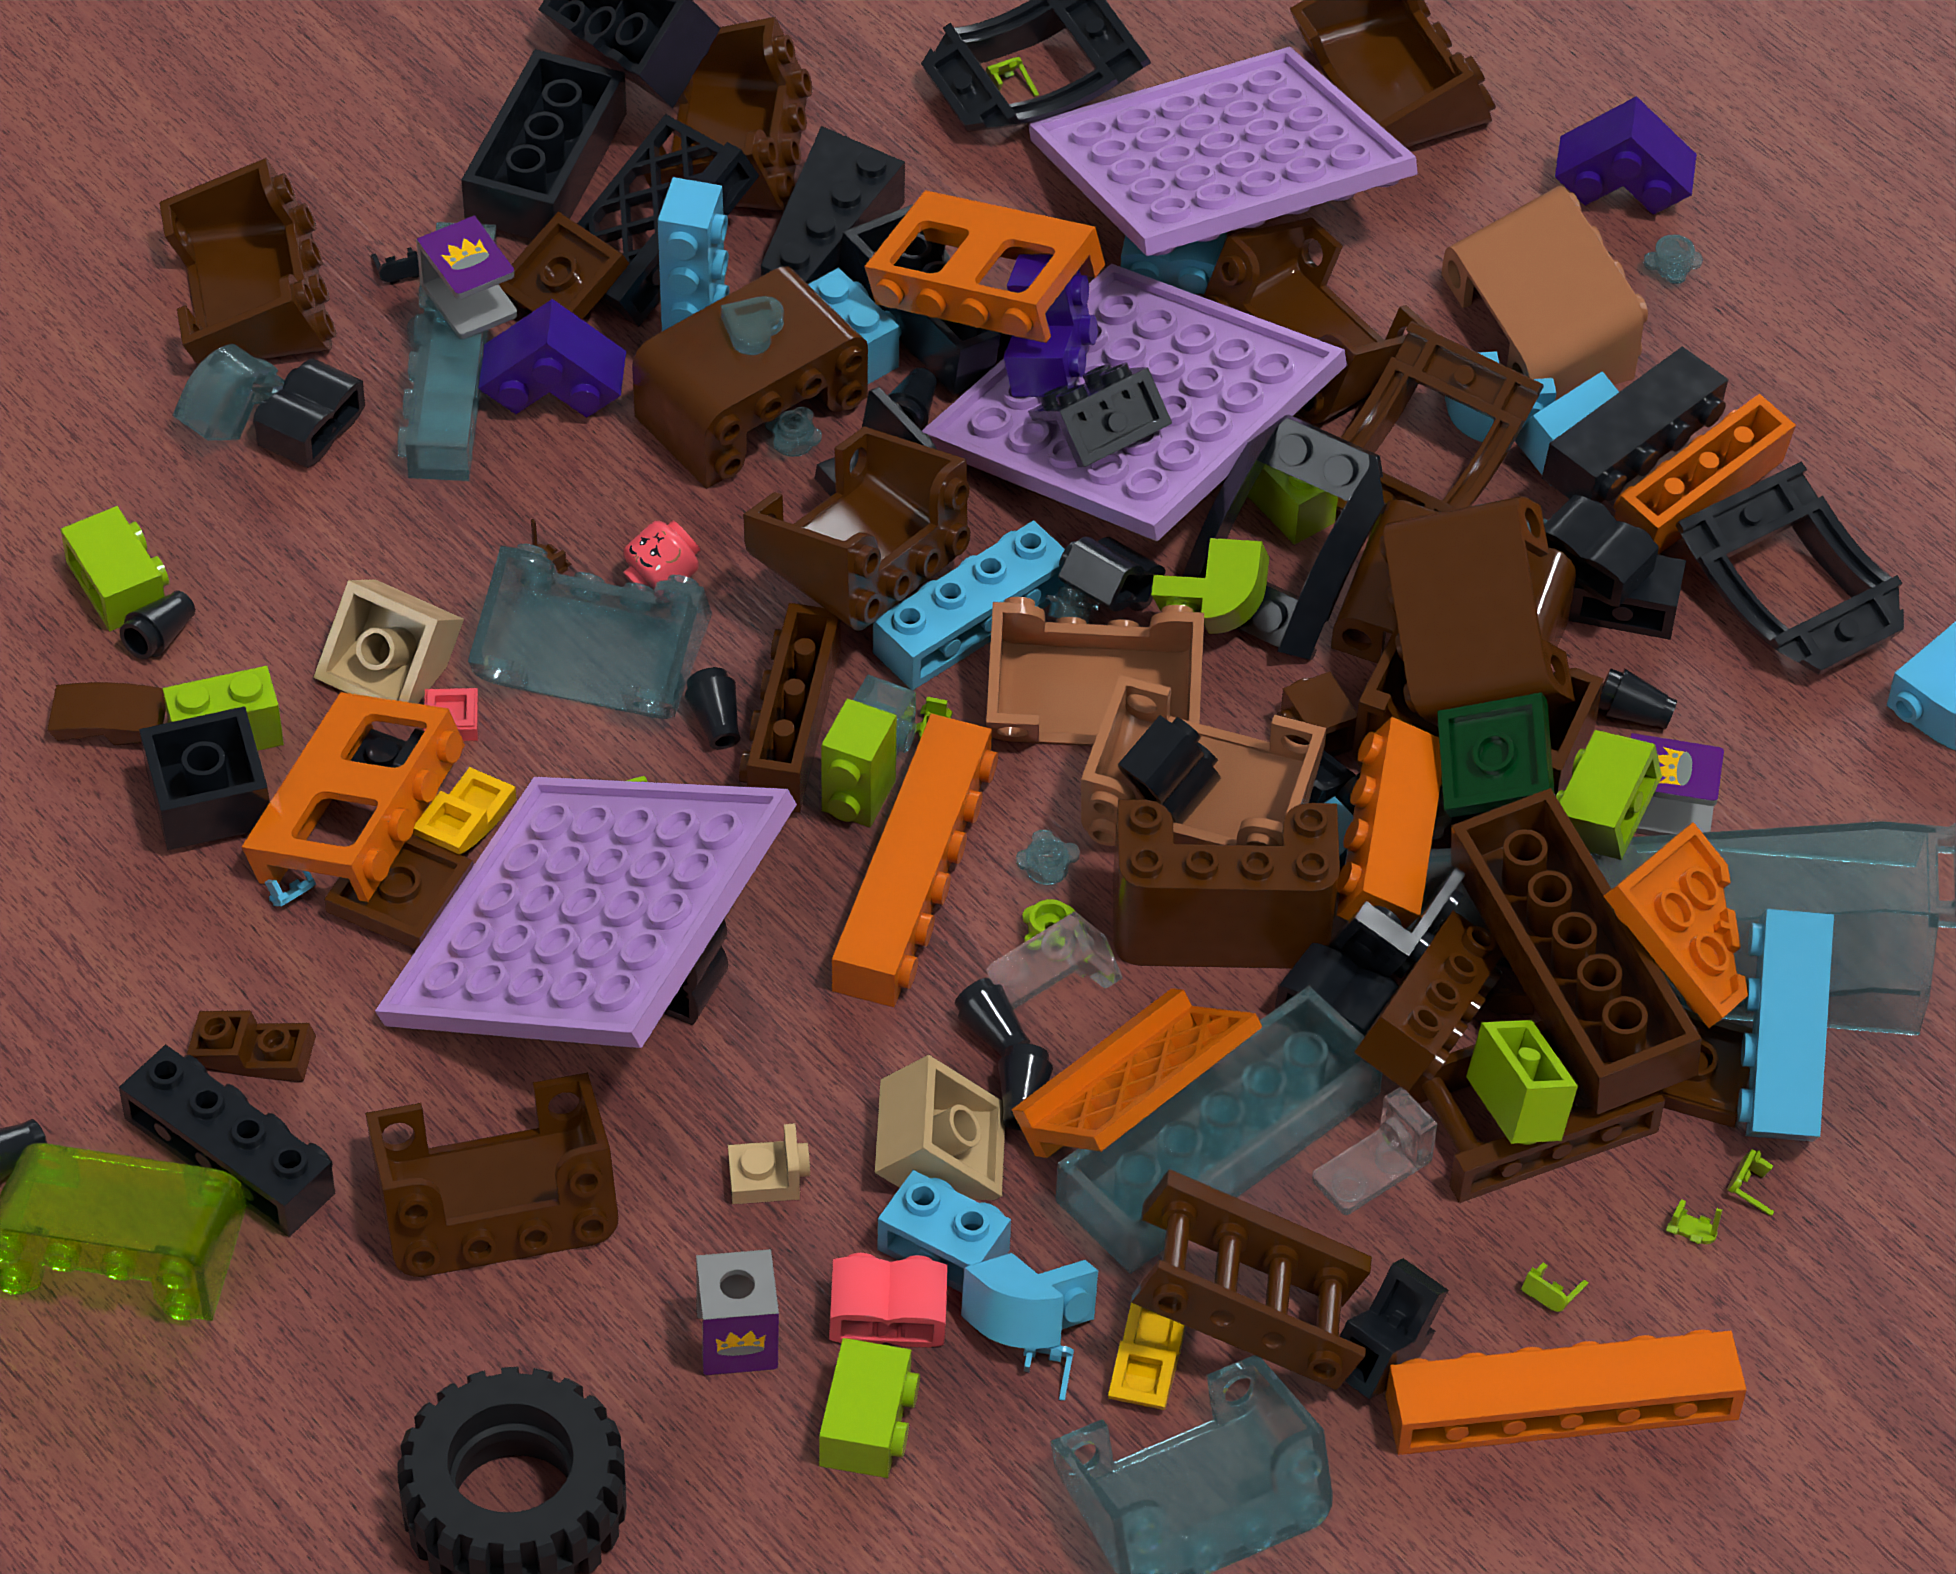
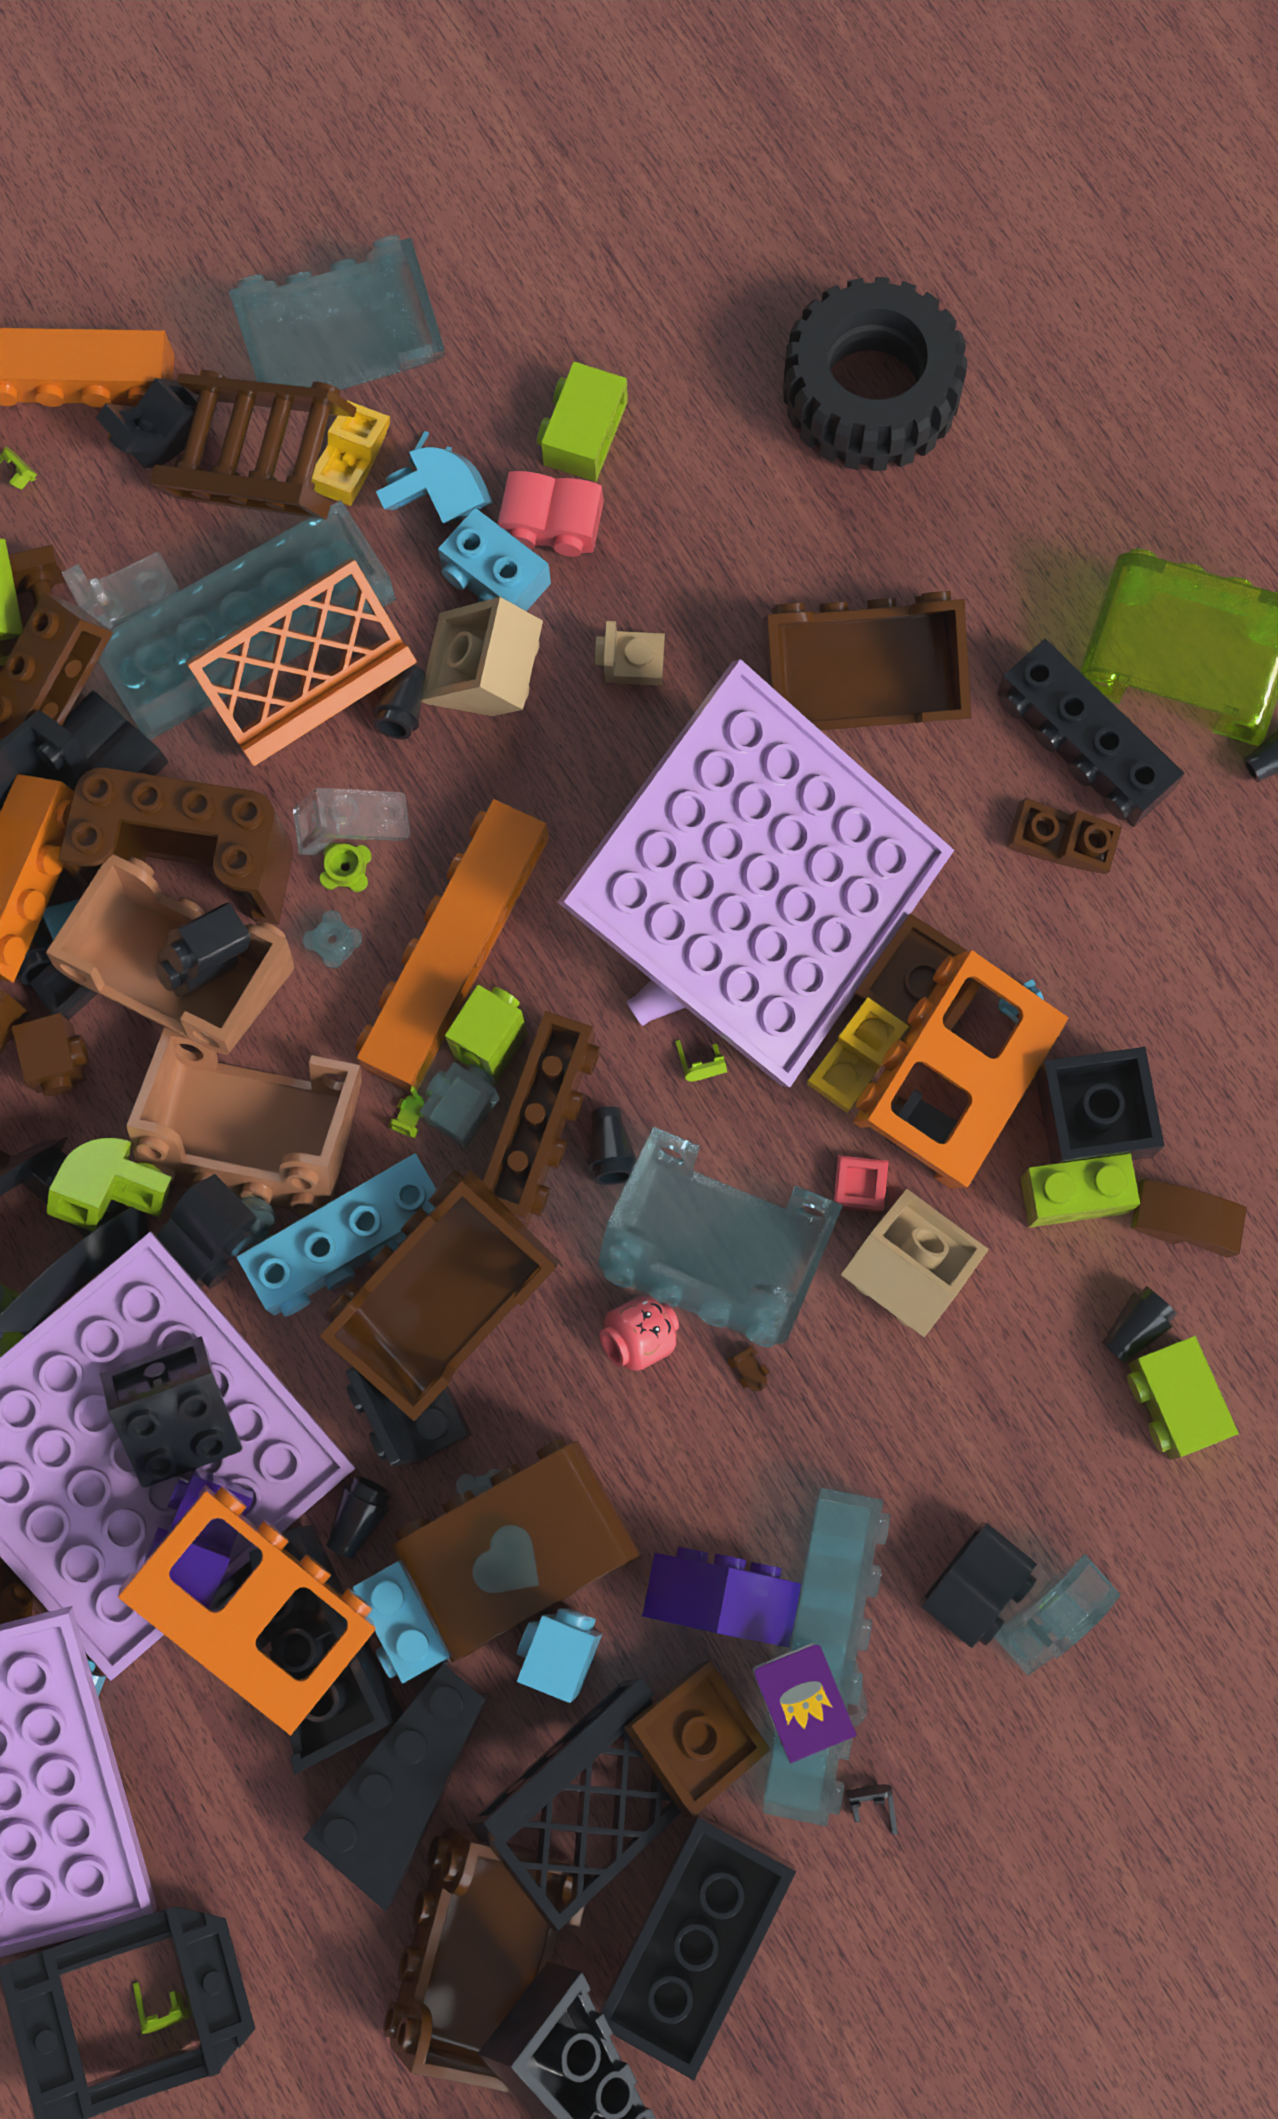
camera: 165 degrees left, 25 degrees up
(249, 266) = (1029, 1795): reddish brown windscreen -> none
(737, 1311) = (676, 498): piece -> none
(990, 1015) = (415, 774): black cone -> none

